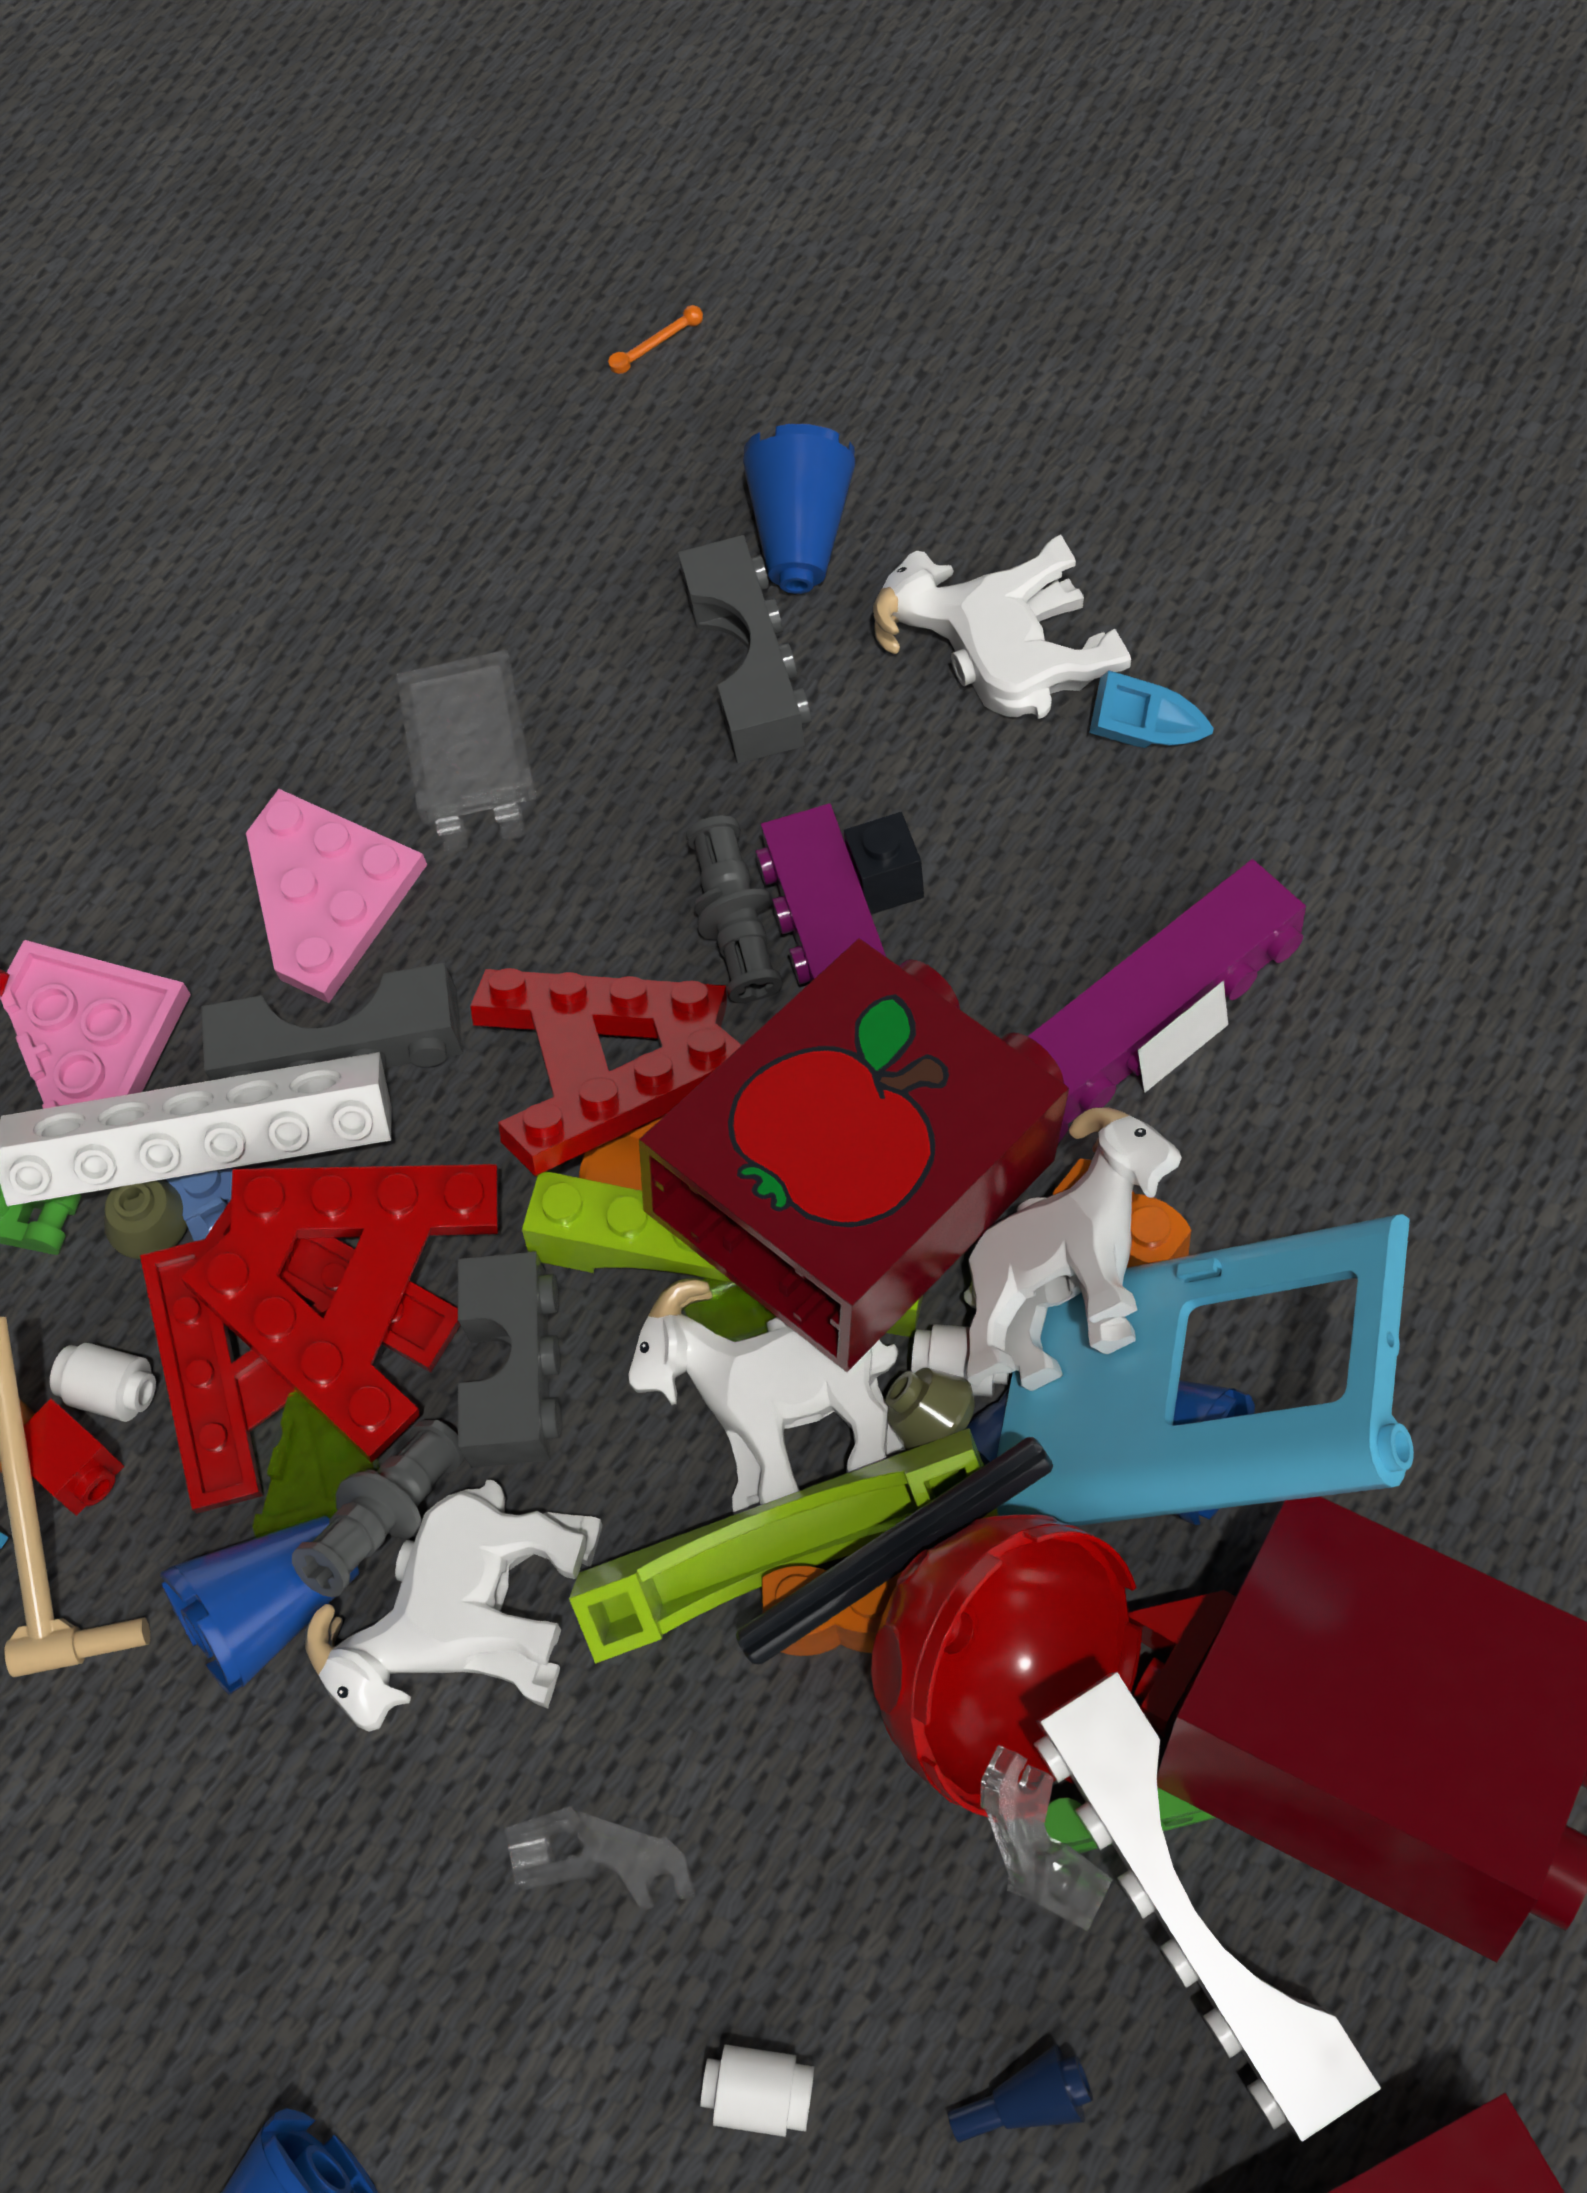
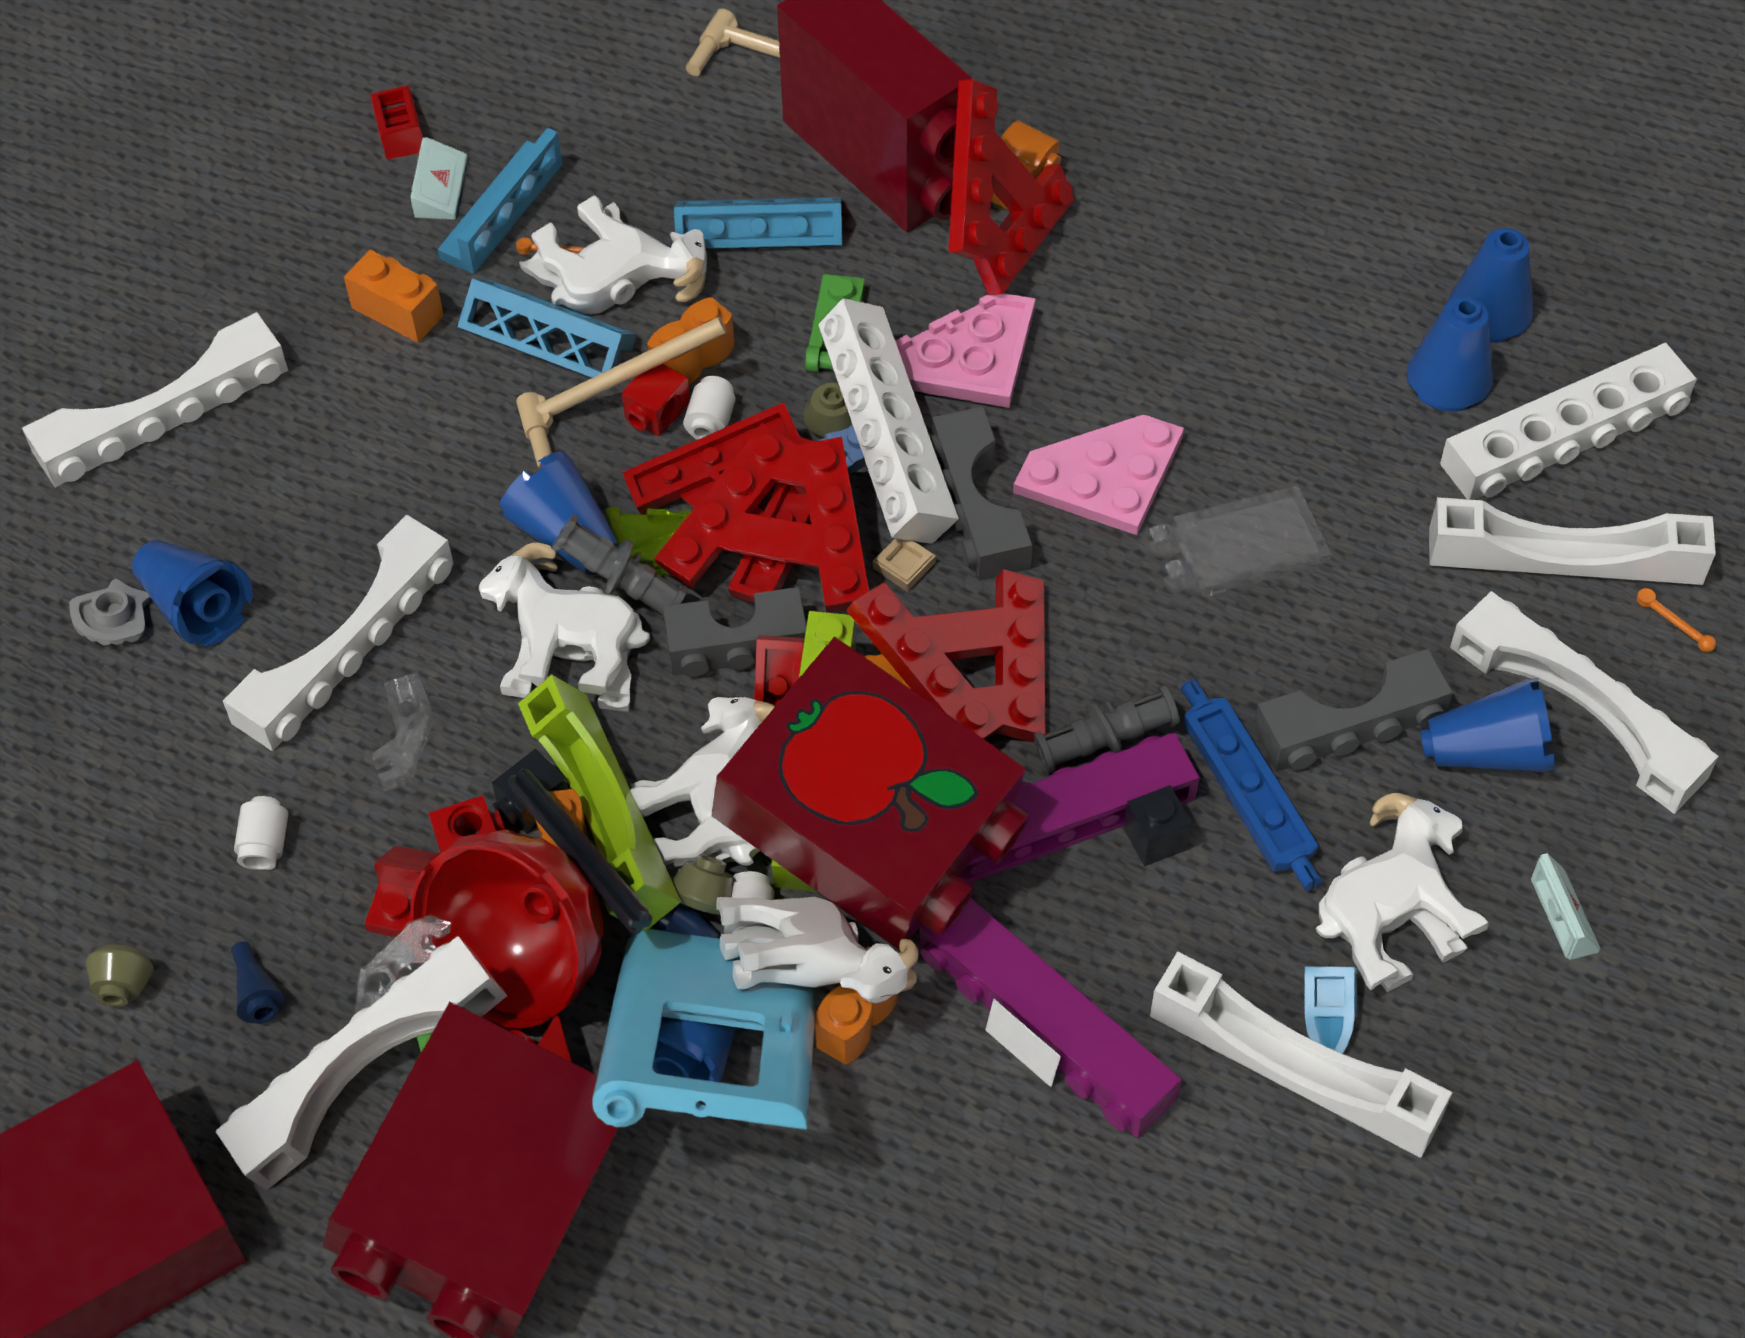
camera: 75 degrees right, 5 degrees down
(157, 431) = (1502, 282): none -> blue cone
(250, 483) = (1454, 358): none -> blue cone
(369, 397) = (1568, 422): none -> white brick
(420, 1137) = (904, 562): none -> tan tile
(520, 2073) = (276, 701): none -> white arch
(524, 479) = (1657, 549): none -> white arch
(597, 1298) = (776, 666): none -> red slope
(727, 1670) = (509, 805): none -> black brick
(805, 1785) = (455, 820): none -> red brick
(830, 765) = (1250, 785): none -> blue plate
(845, 363) = (1666, 757): none -> white arch
(876, 1860) = (397, 877): none -> red slope
(1028, 482) = (1563, 909): none -> light aqua slope
(1157, 821) = (1381, 1100): none -> white arch

